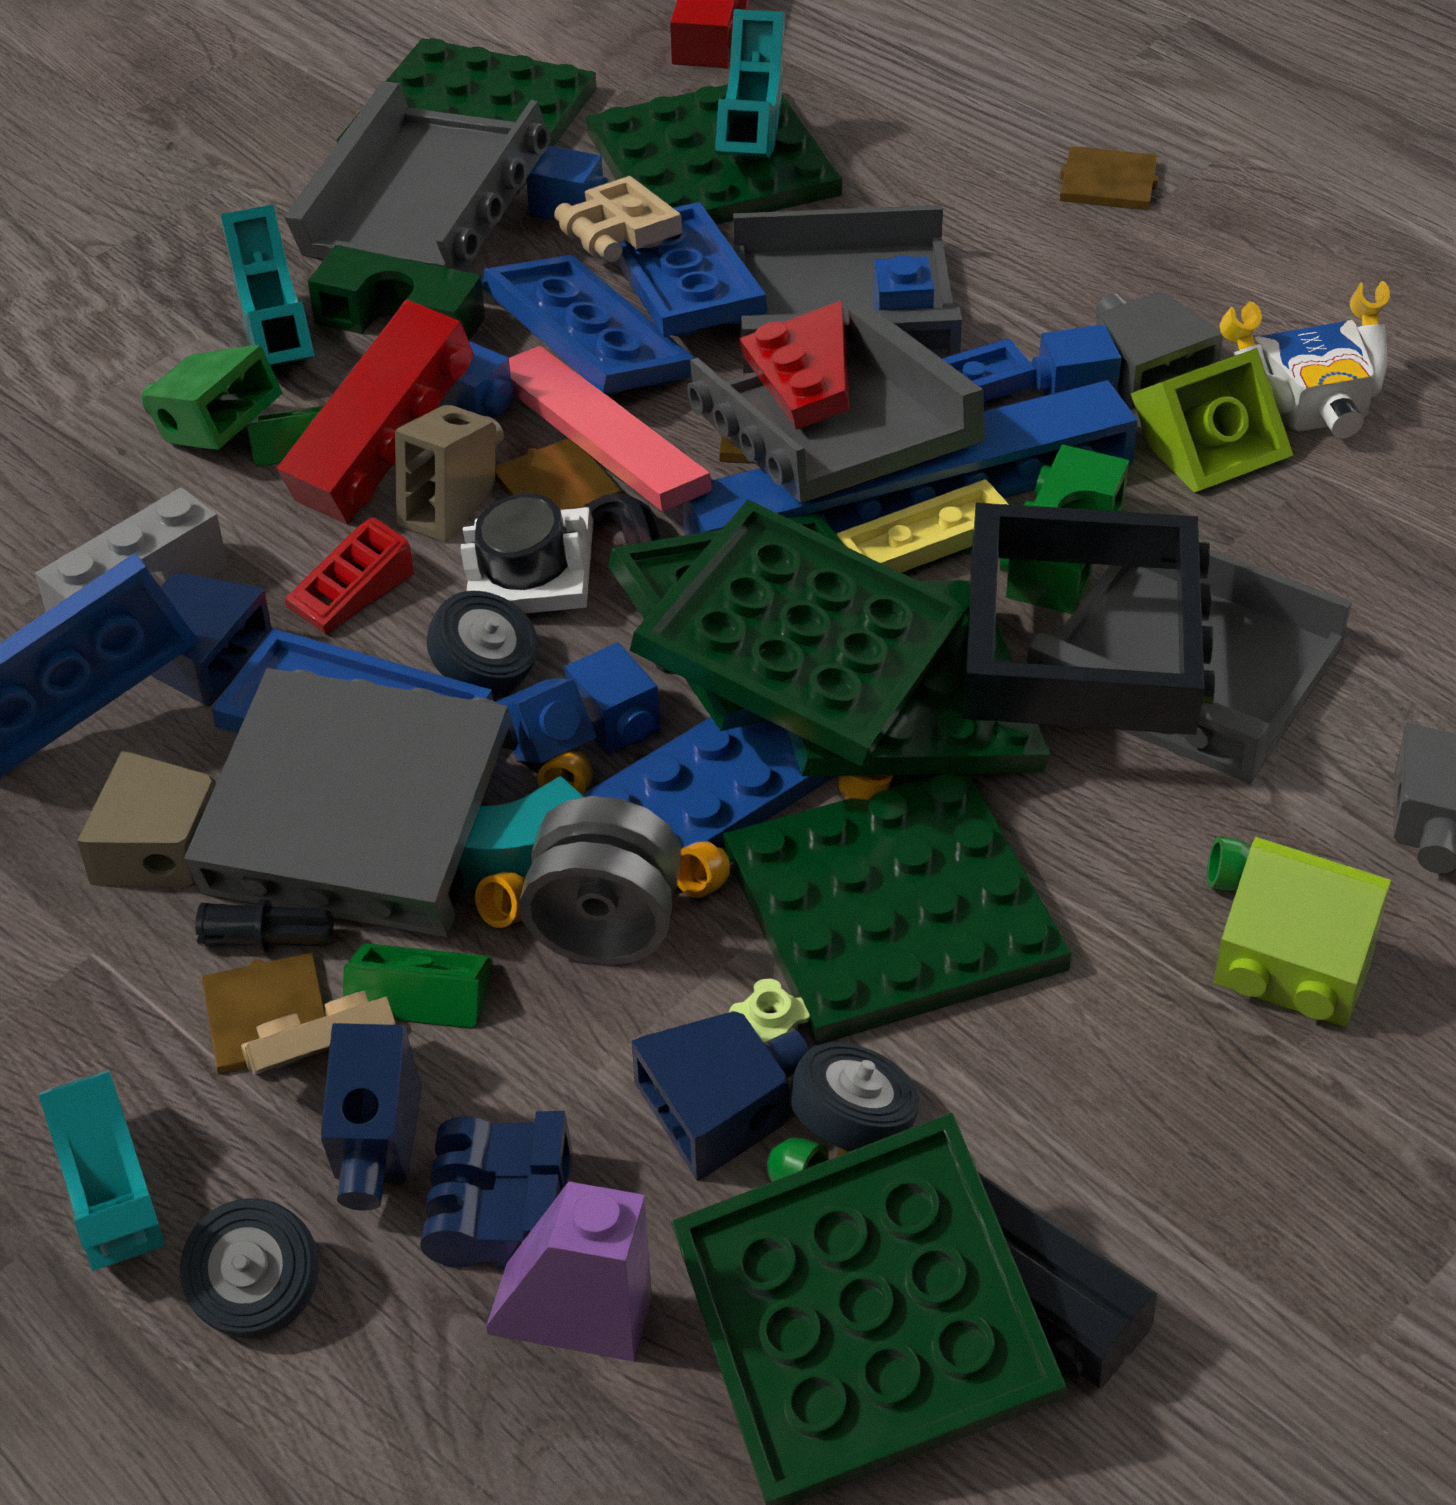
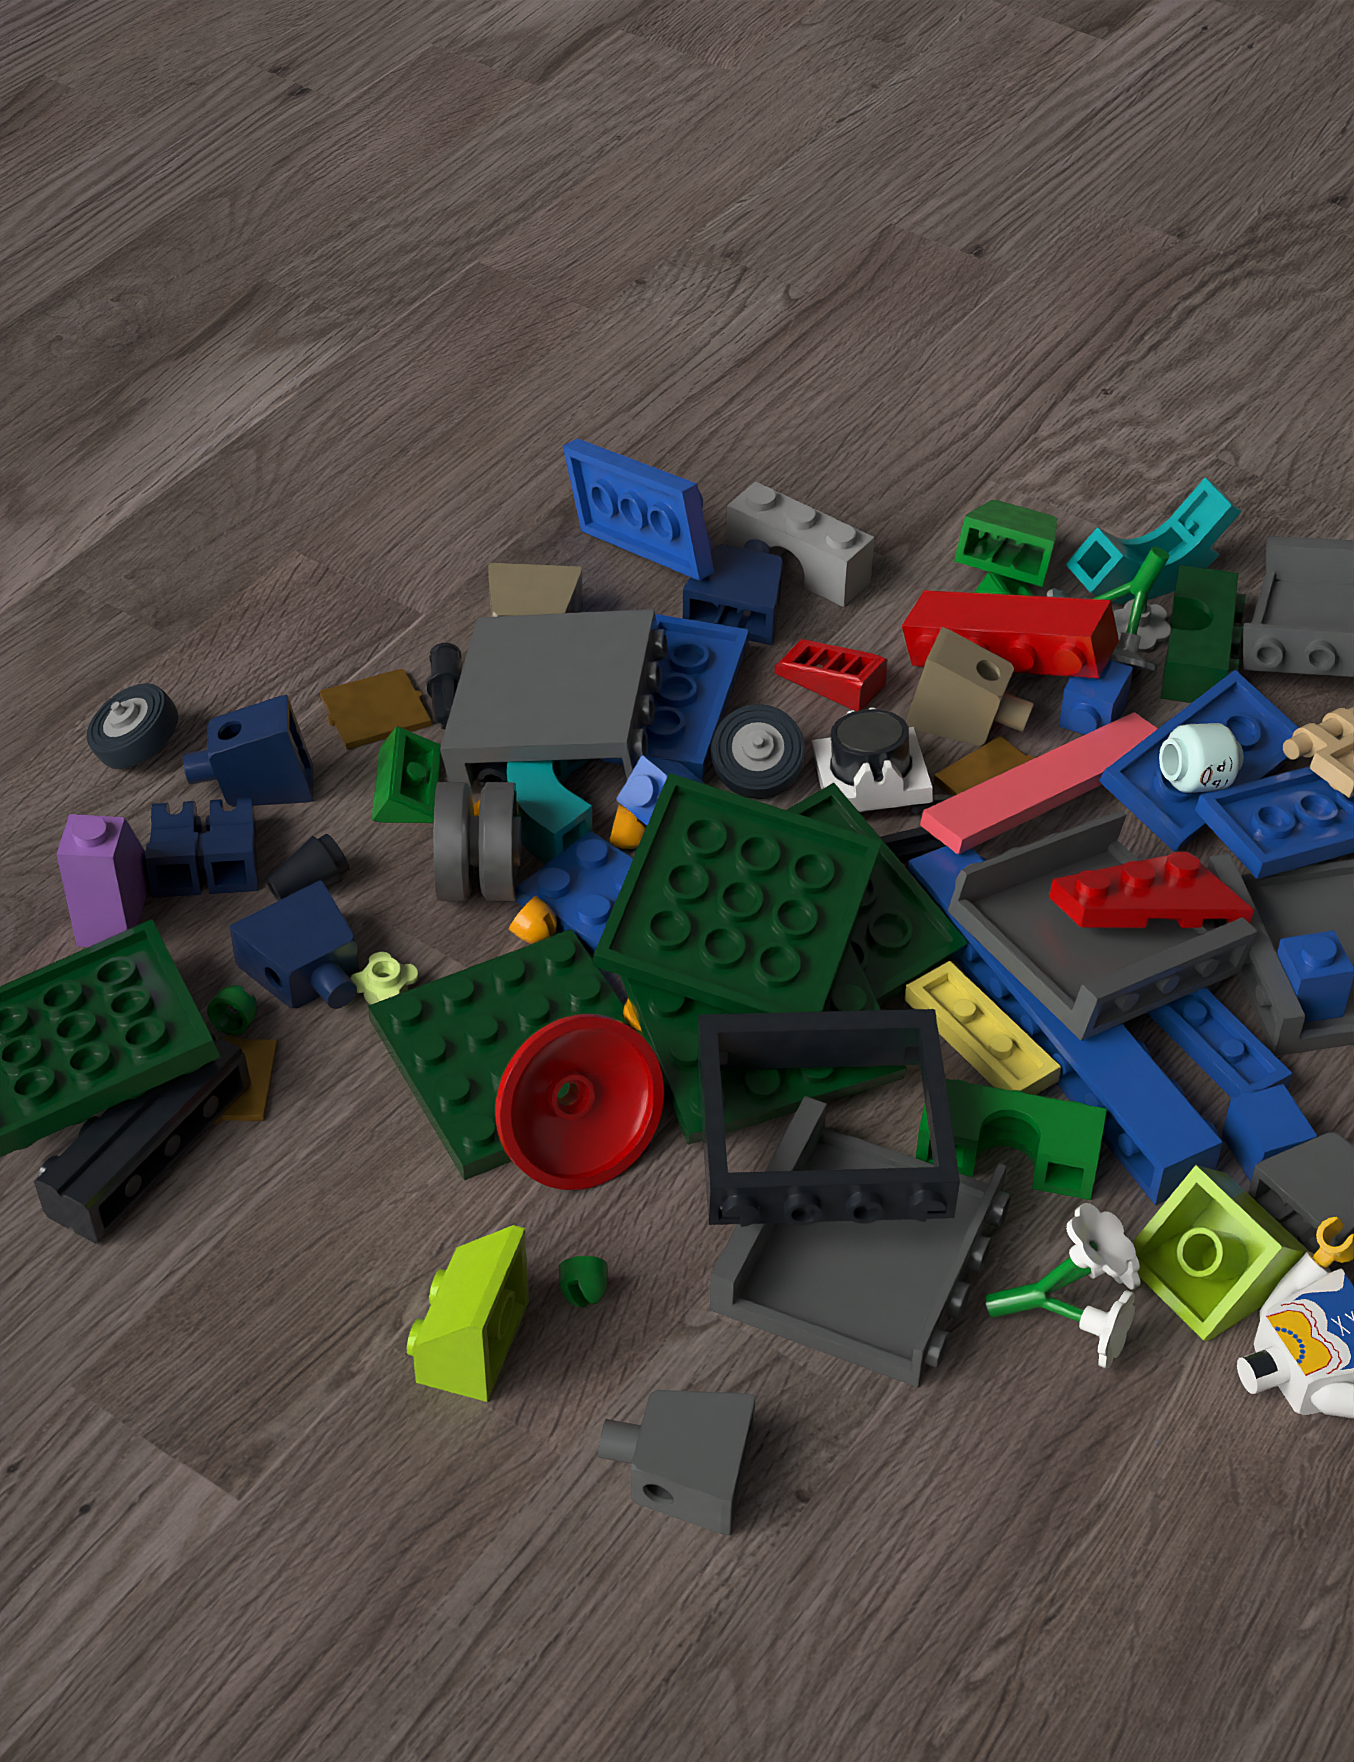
camera: 80 degrees right, 0 degrees up
(101, 1170) = (207, 649): teal arch -> none
(289, 1041) = (326, 718): tan plate -> none
(348, 337) = (1138, 623): none -> plant
(571, 1077) = (312, 862): none -> black cone
(622, 301) = (1201, 757): none -> light aqua head
(852, 1095) = (291, 1028): black wheel -> none
(1024, 819) = (602, 1118): none -> red dish
(1299, 486) = (1097, 1250): none -> white plant

